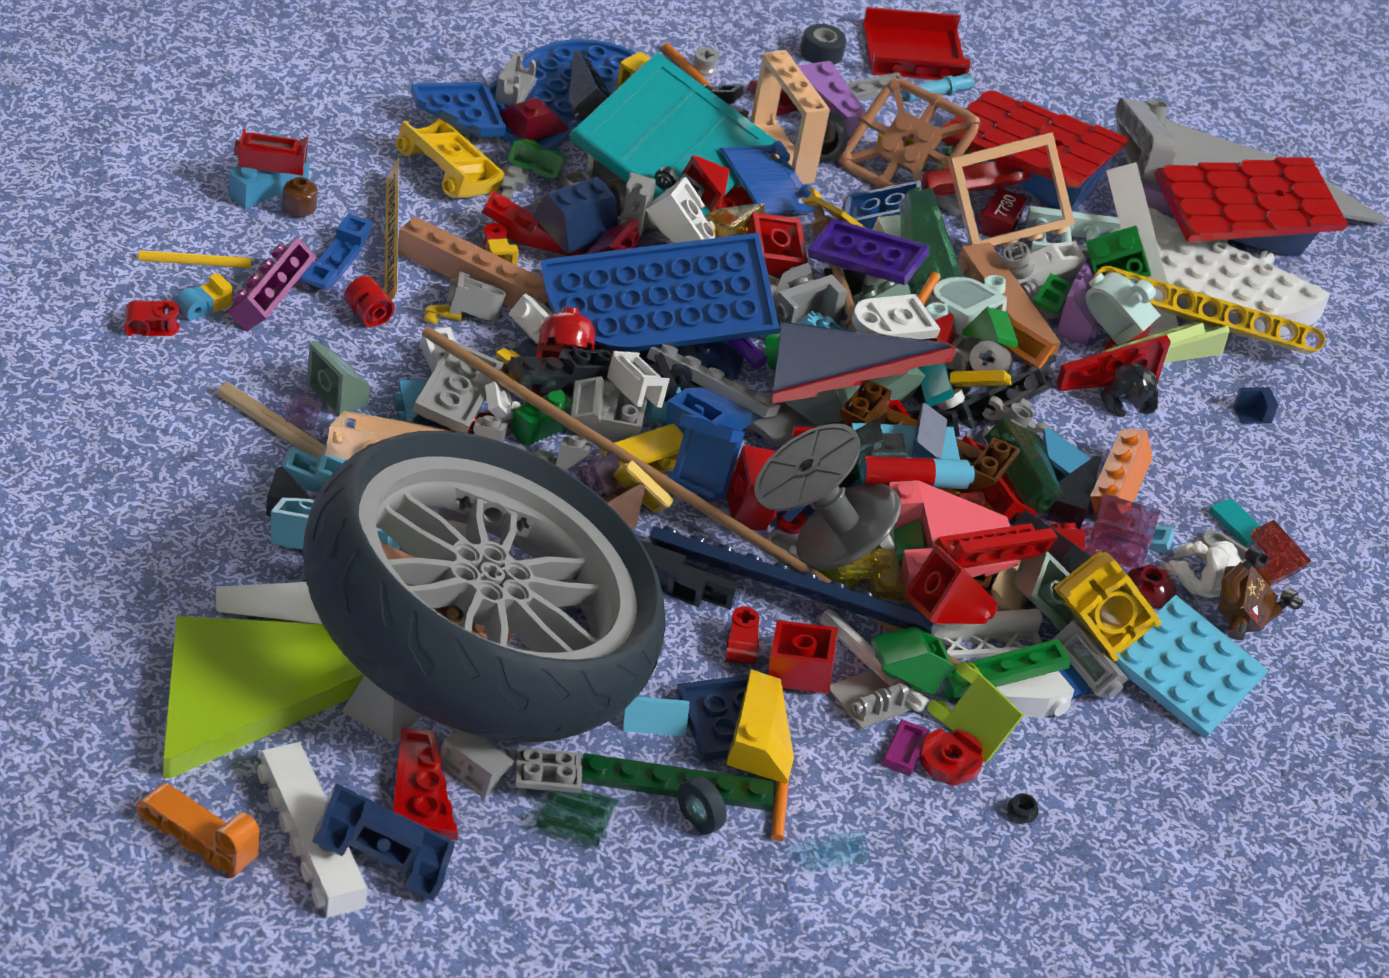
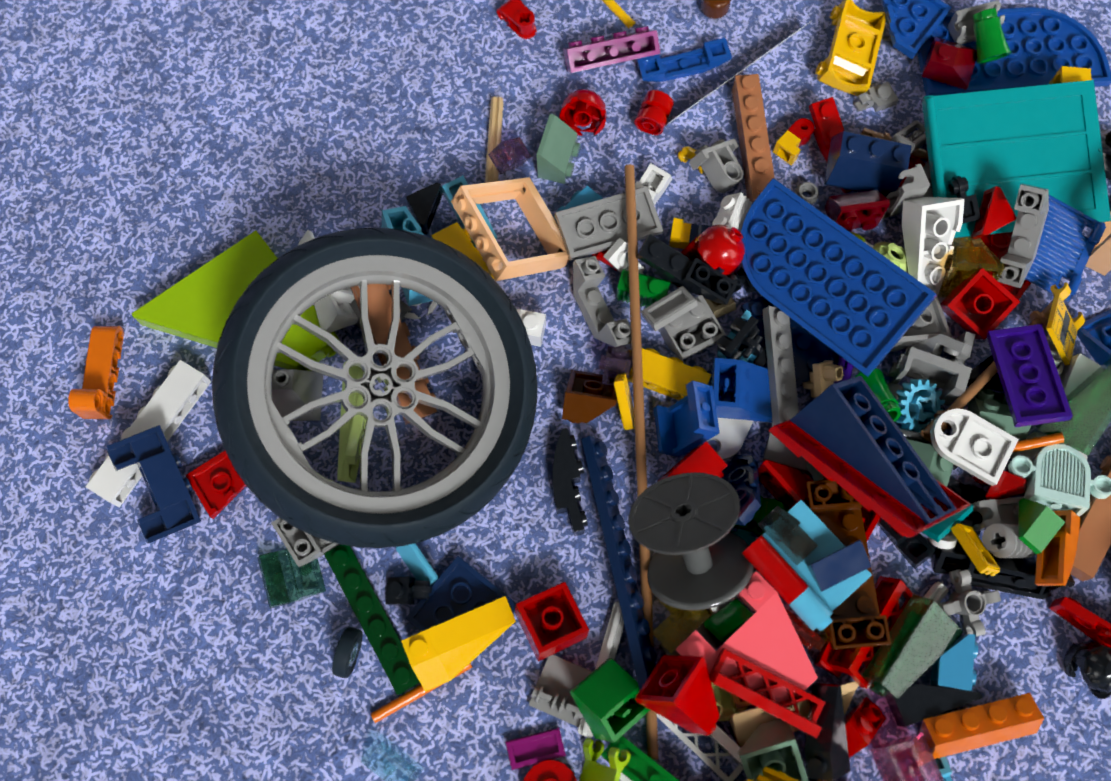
camera: 65 degrees right, 30 degrees up
(205, 298) = (565, 28): leg -> none
(319, 327) = (583, 108): none -> red cylinder
(542, 79) = (989, 36): none -> green plant
(545, 162) = (909, 89): green brick -> none
(586, 87) = (1023, 66): black wedge -> none
(637, 378) = (715, 322): white window -> none
(674, 743) = (404, 590): none -> black plate
(743, 636) = (538, 568): red piece -> none
(744, 169) = (1032, 209): none -> light grey slope
(745, 360) = (822, 377): none -> tan hips

